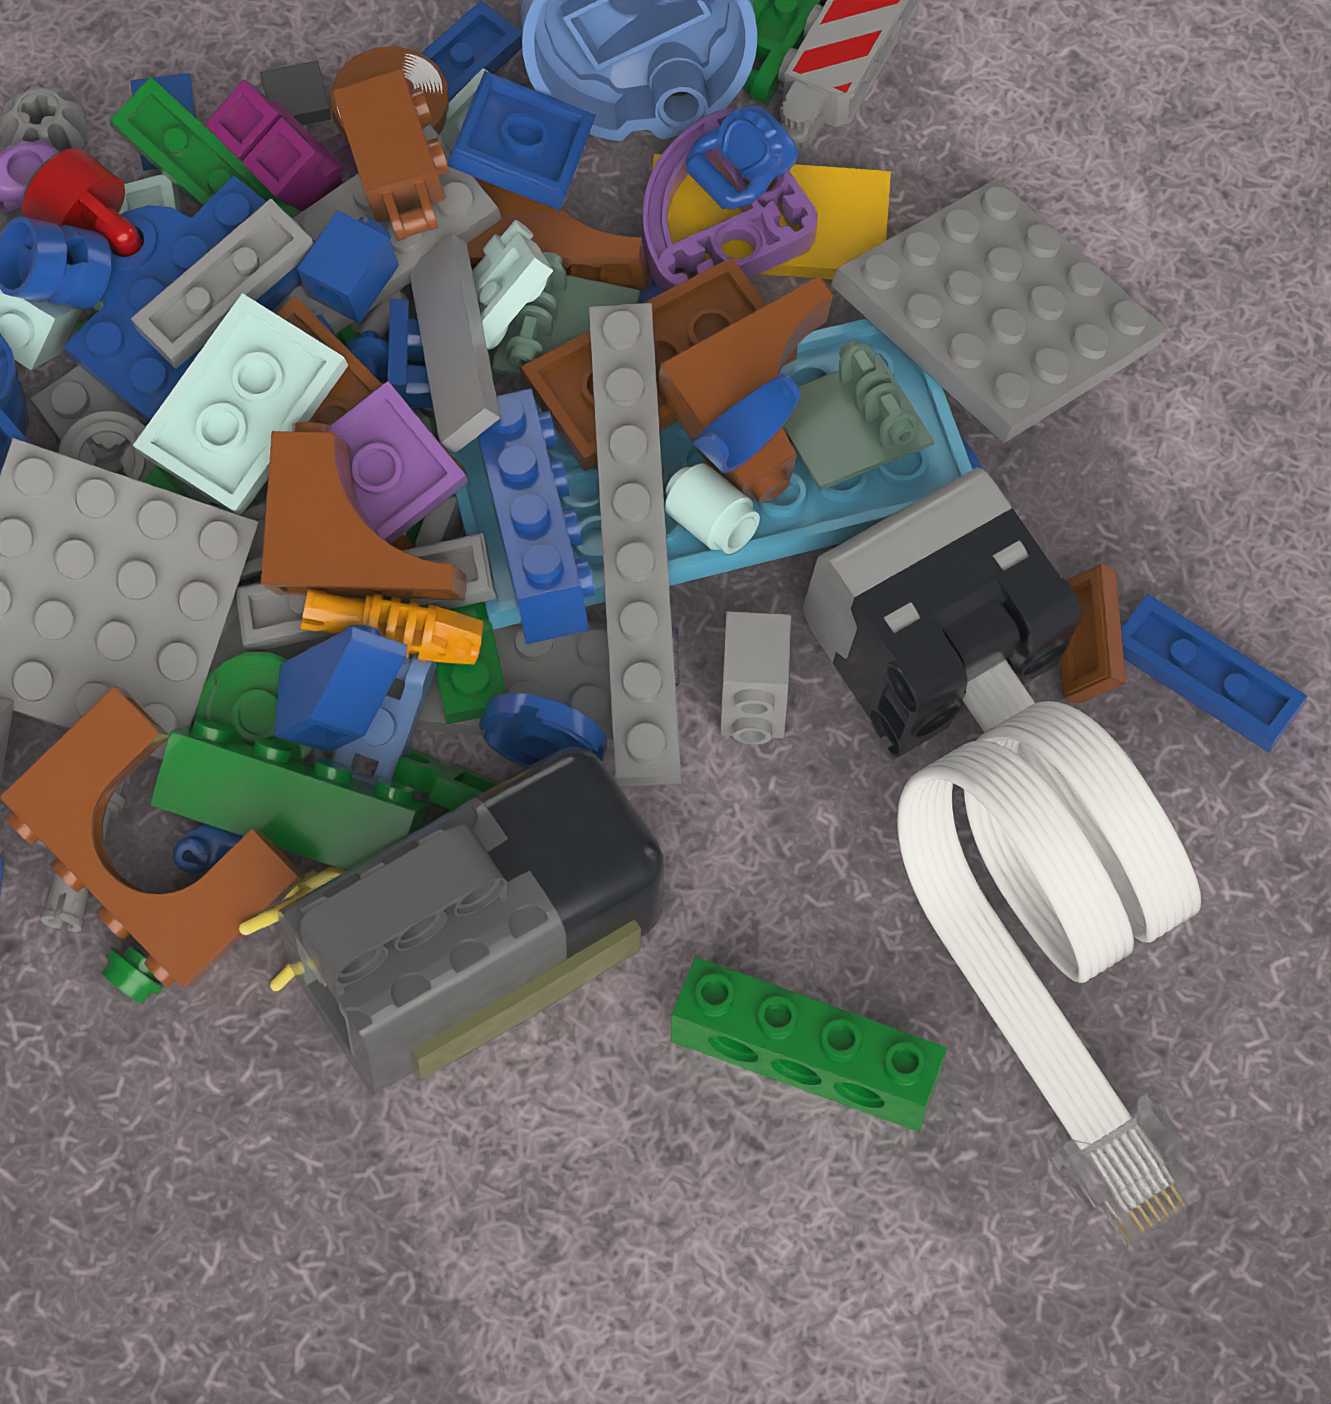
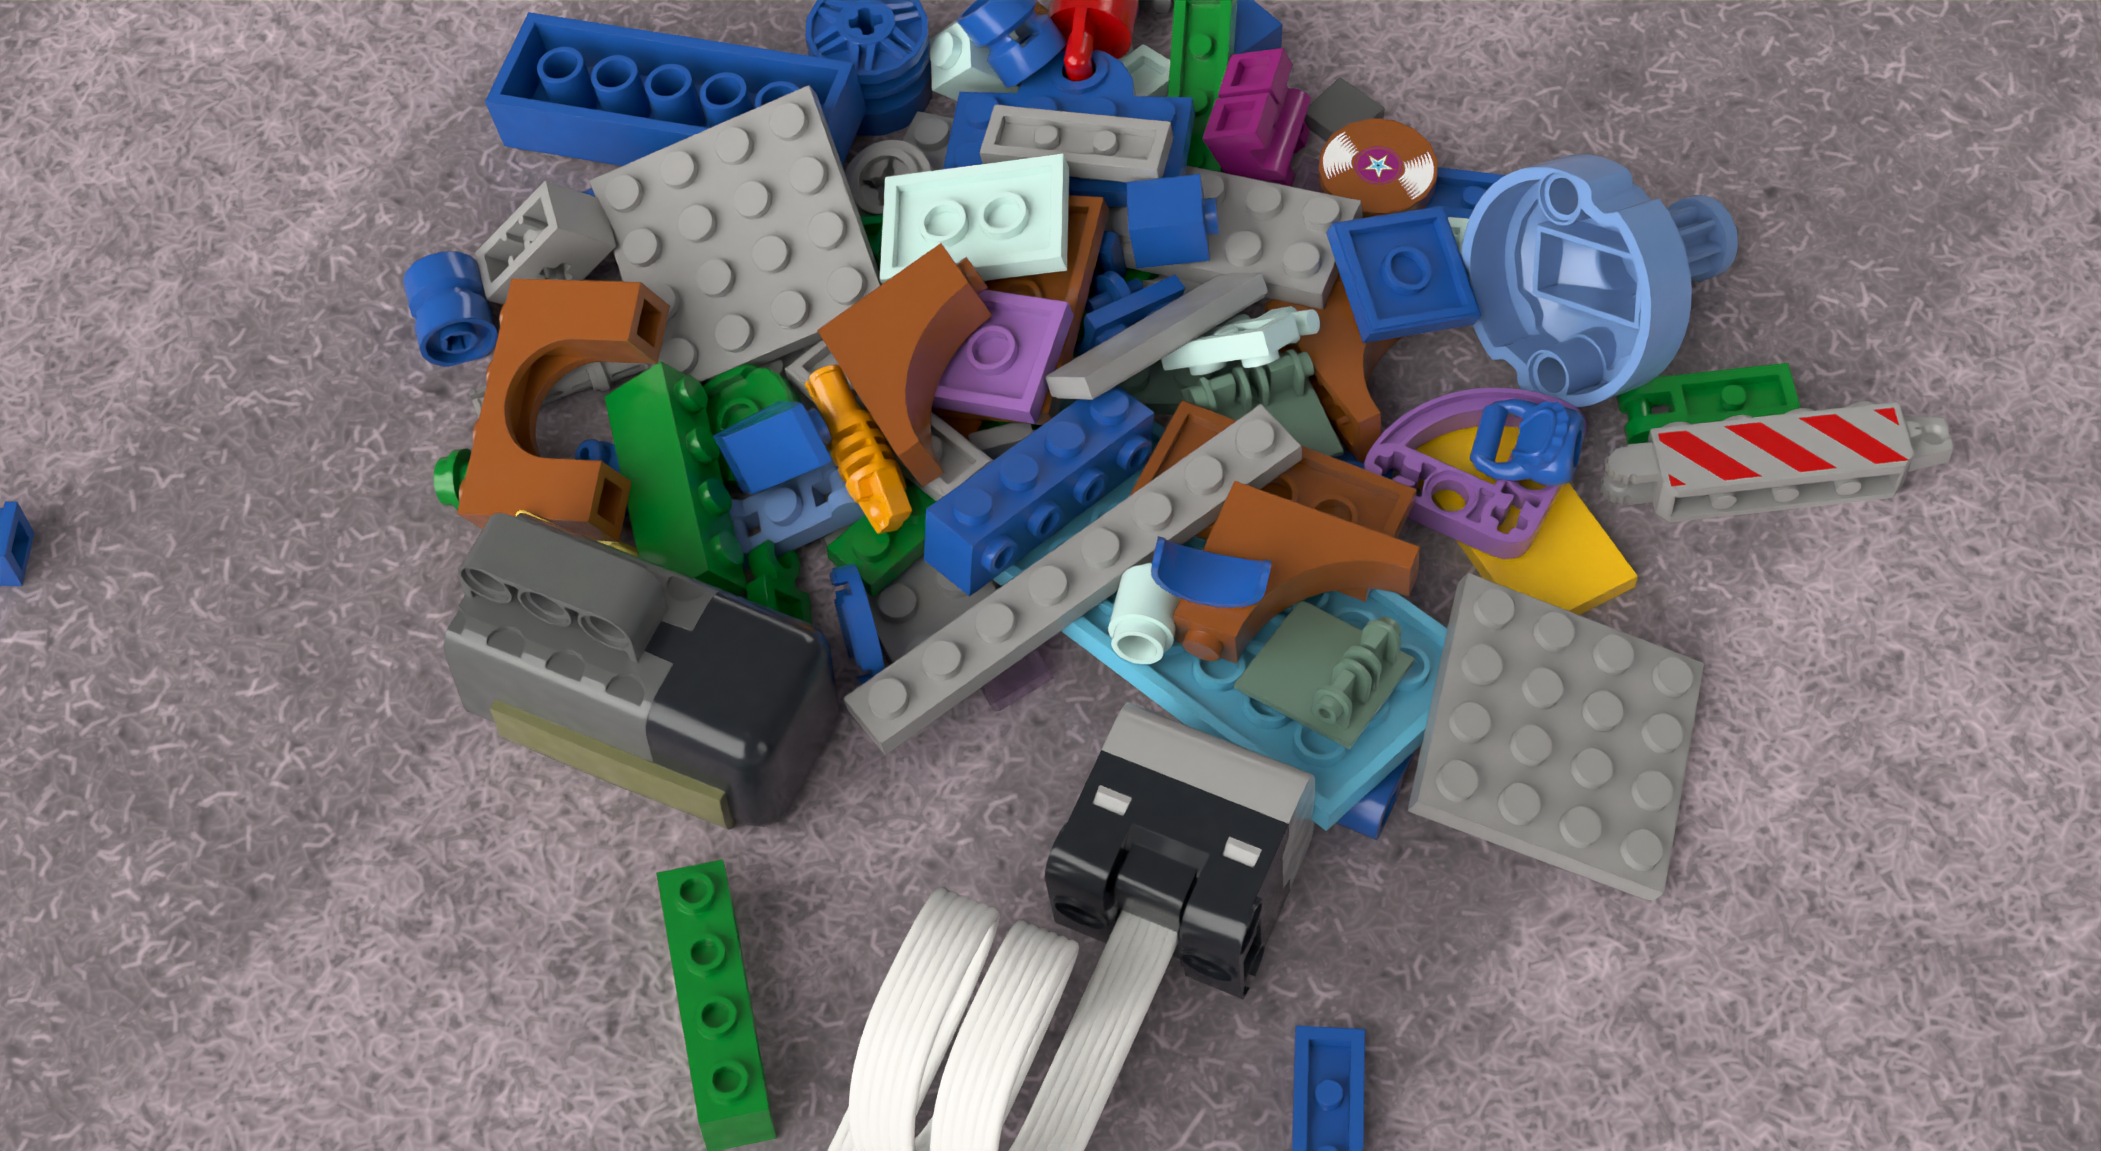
camera: 60 degrees right, 5 degrees down
(392, 151) = (1295, 182): dark orange brick -> none
(755, 676) = (1029, 752): light grey brick -> none
(1095, 652) = (1288, 1004): dark orange tile -> none

